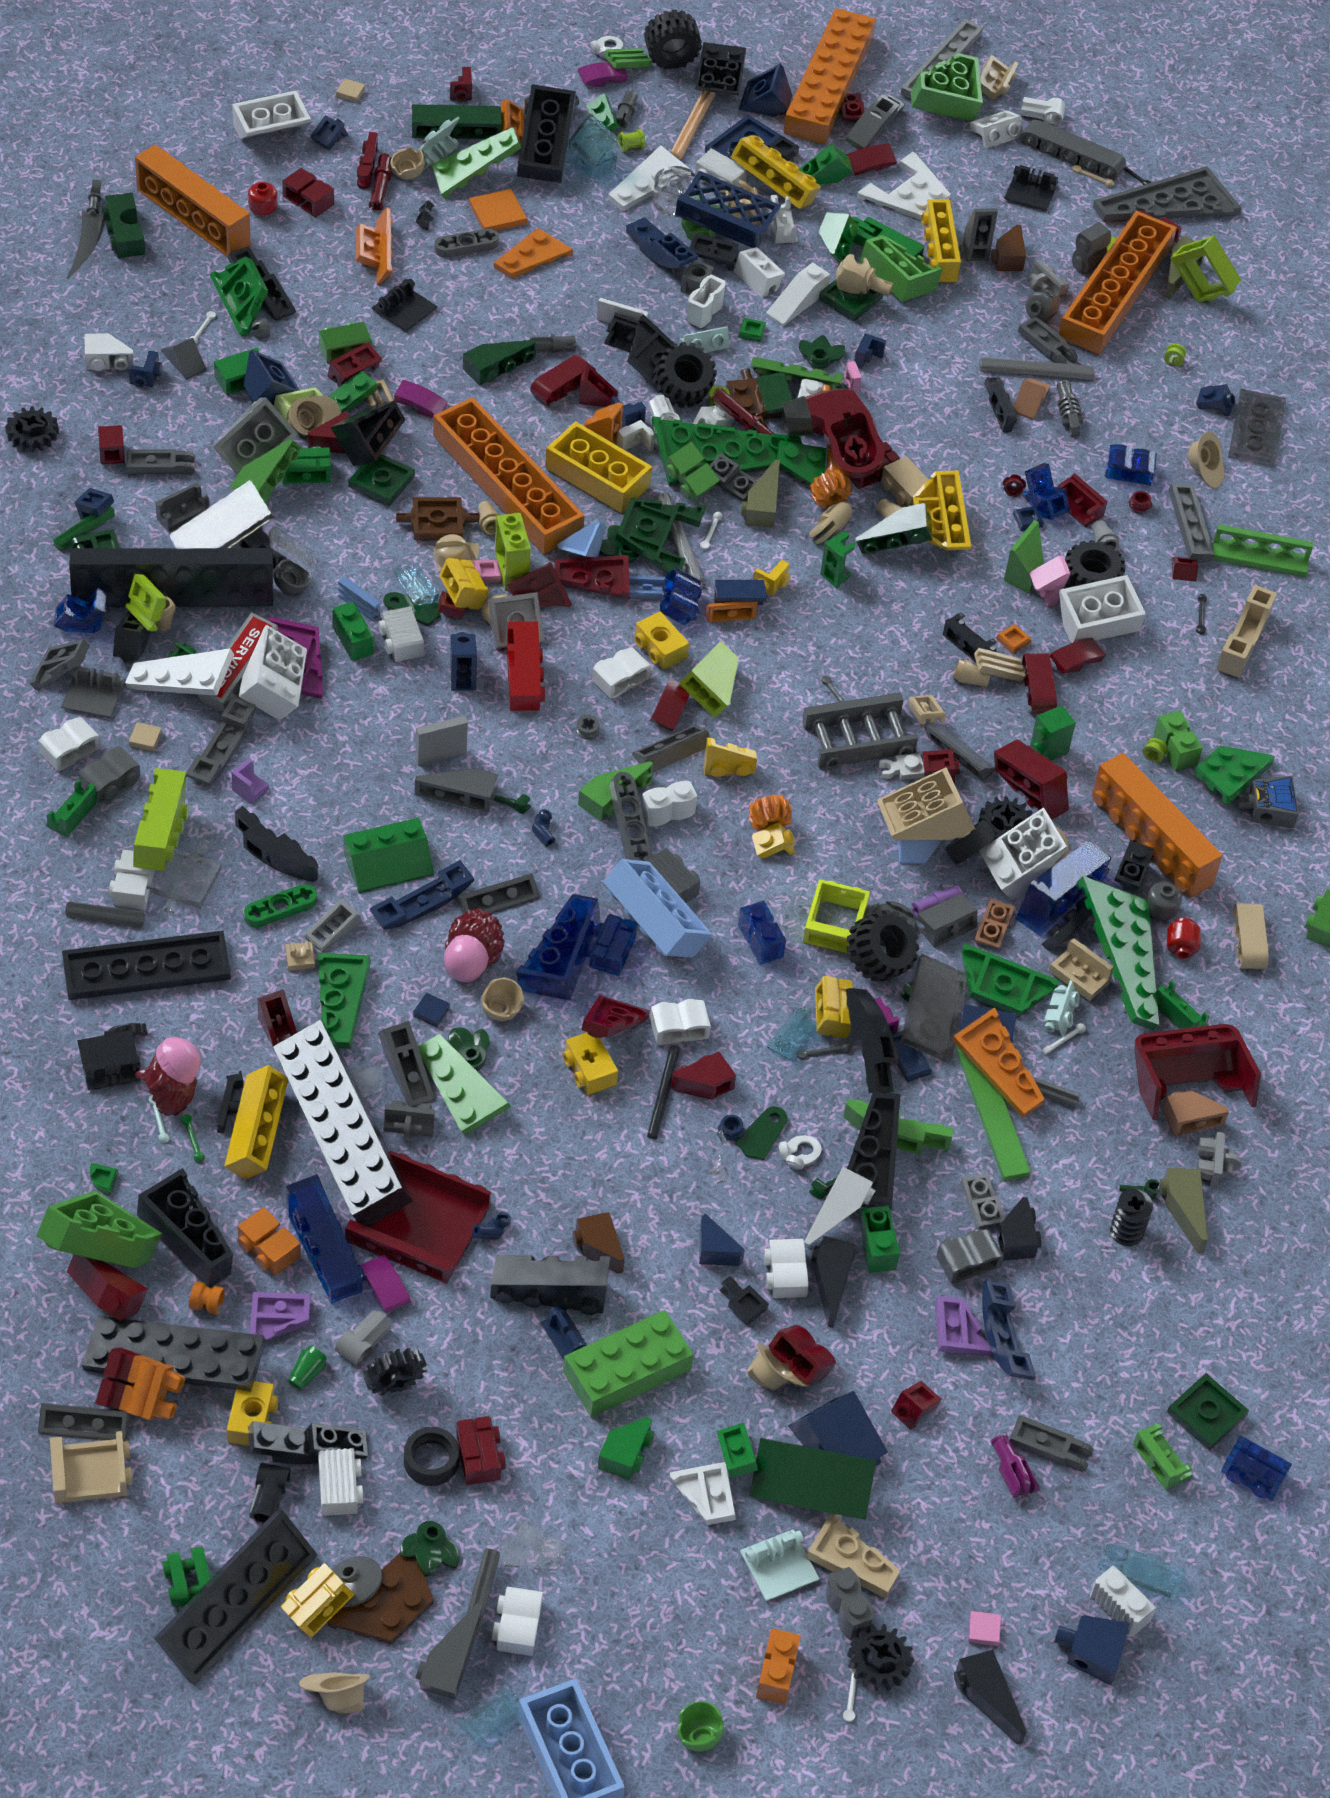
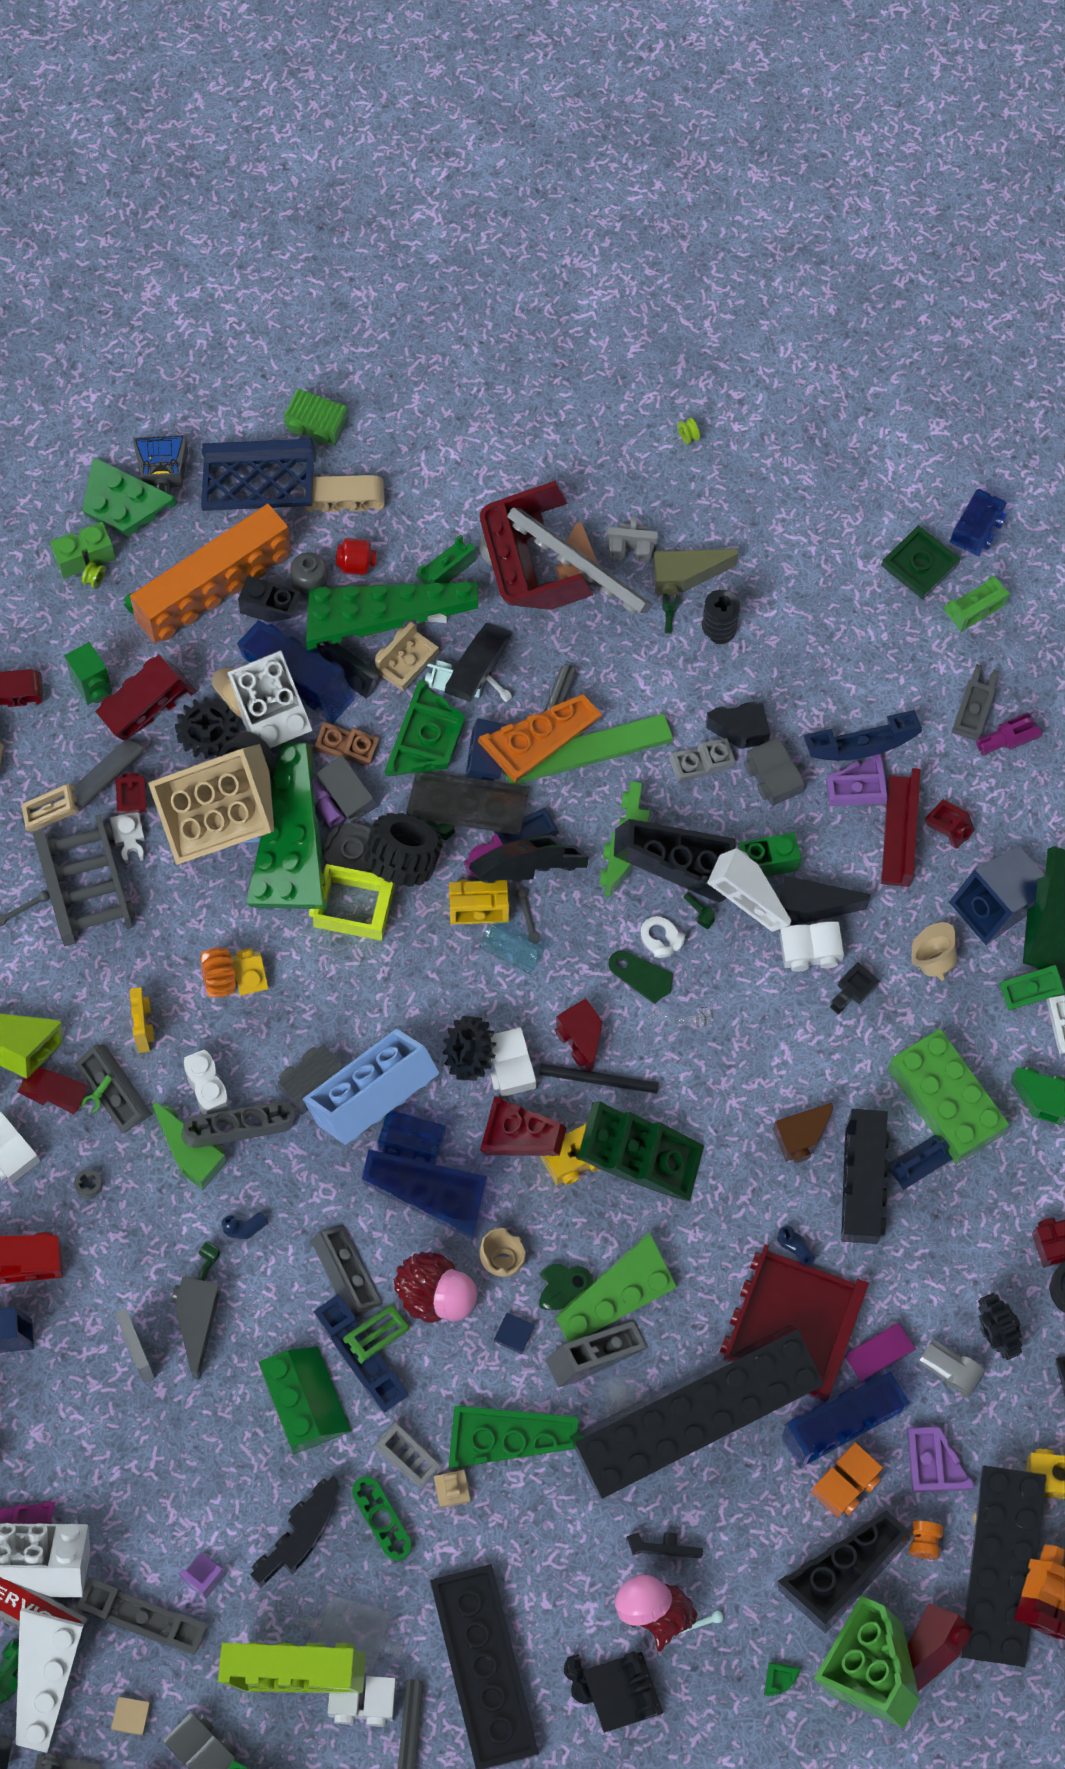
camera: 90 degrees left, 15 degrees up
(187, 1120) = (737, 1574): green hinge -> none
(256, 1122) = (698, 1509): yellow brick -> none
(276, 1017) = (553, 1502): dark red slope -> none
(308, 1366) = (994, 1424): green cone -> none
(409, 1119) = (675, 1343): dark grey hips -> none
(429, 912) = (357, 1347): none -> bright green tile
(586, 1106) = (641, 1151): none -> dark green slope
(664, 732) = (97, 1094): none -> bright green hand
(691, 985) = (469, 1048): none -> black gear
(717, 1246) = (792, 1017): dark blue slope -> none
(734, 1122) = (636, 1000): dark blue plate -> none
(766, 939) = (371, 980): clear blue piece -> none
(802, 1354) = (915, 927): dark red brick -> none
(900, 871) = (289, 858): none -> green wing
(909, 1360) = (900, 829): none -> dark red fence
(1080, 1021) = (477, 662): none -> black slope
(1181, 1098) = (570, 555): none -> light grey plate
(1282, 868) = (262, 453): none -> dark blue fence

